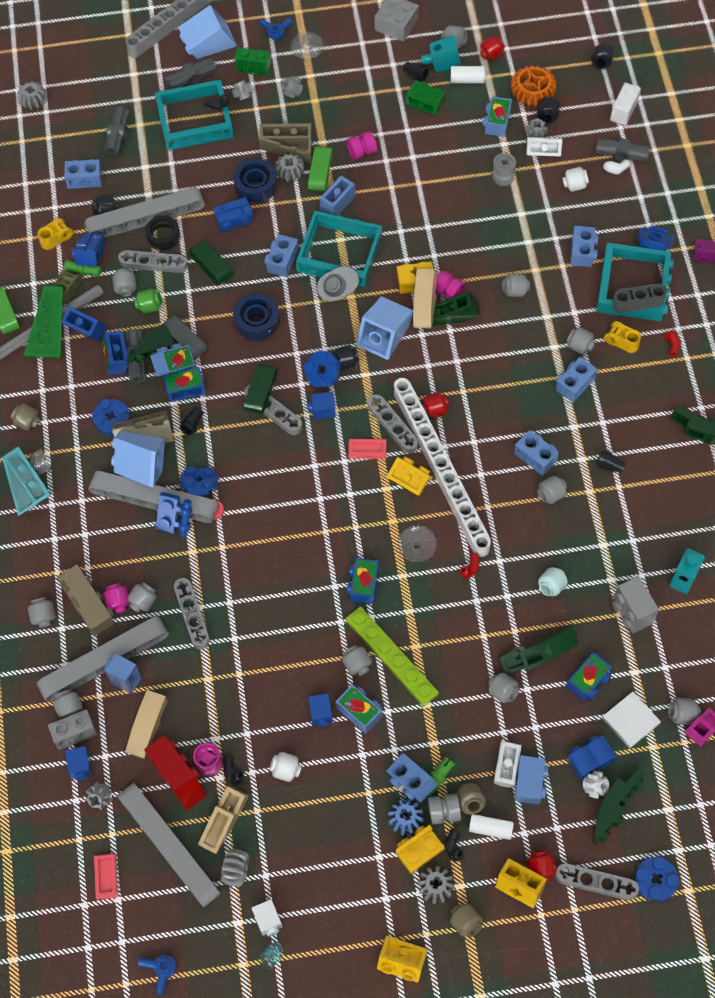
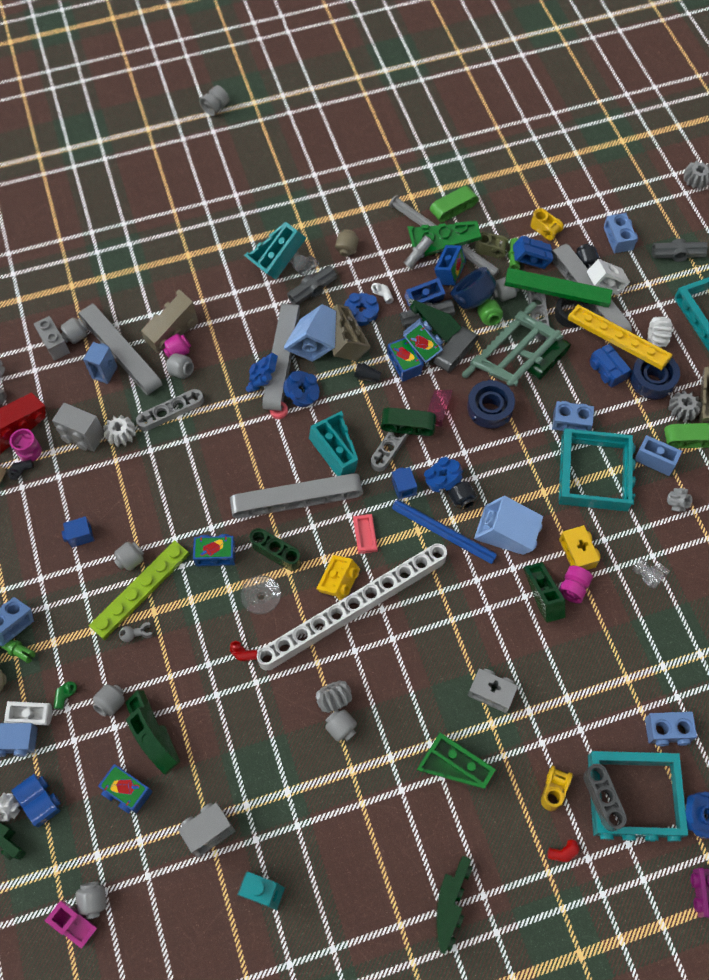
camera: 80 degrees right, 0 degrees up
(41, 612) = (158, 294): light grey head -> none
(59, 350) = (418, 252): none -> light grey pin
(71, 458) = (312, 285): none -> dark grey piece
(79, 763) = (22, 349): blue brick -> none
(94, 393) = (382, 290): none -> white arm
(122, 305) = (474, 289): none -> dark blue piece
(137, 192) = (608, 276): none -> white brick
(141, 234) = (558, 287): none -> green tile
(146, 723) = (61, 392): tan slope -> none
(200, 700) = (78, 427): none -> light grey brick
(201, 667) = (119, 430): none -> white gear
(208, 166) = (660, 331): none -> white gear
(210, 196) = (620, 337): none -> yellow tile
(218, 305) = (498, 371): none -> sand green piece
(242, 363) = (439, 404): none -> clear pink slope
(272, 457) = (334, 444): none -> teal wedge
(285, 766) = (21, 510): white head -> none
(318, 502) = (296, 495): none -> light grey beam
(337, 283) = (547, 471): light grey piece -> none
(359, 708) = (81, 566): brick -> none
(370, 534) = (271, 541): none -> dark green beam
(376, 382) = (444, 531): none -> blue axle
(382, 192) = (679, 499): none -> light grey gear
(393, 423) = (395, 551): light grey beam -> none
(424, 298) = (550, 558): tan slope -> none
(435, 405) = (424, 590): red head -> none
(437, 668) = (130, 633): none -> light grey arm
(449, 229) = (650, 575): none -> clear piece
(489, 733) = (63, 693): none -> green arm
(515, 285) = (596, 656): light grey head -> none
(526, 490) = (333, 696): none -> light grey gear
(533, 455) = (381, 701): medium blue brick -> none
(535, 367) = (482, 685): none -> light grey brick
(552, 581) = (231, 738): light aqua head -> none
(579, 381) = (484, 743): medium blue brick -> none
(581, 340) = (538, 737): light grey head -> none
(596, 404) = (455, 763): none -> green wedge
(610, 462) = (387, 788): black cone -> none
(631, 720) = (82, 841): white tile -> none

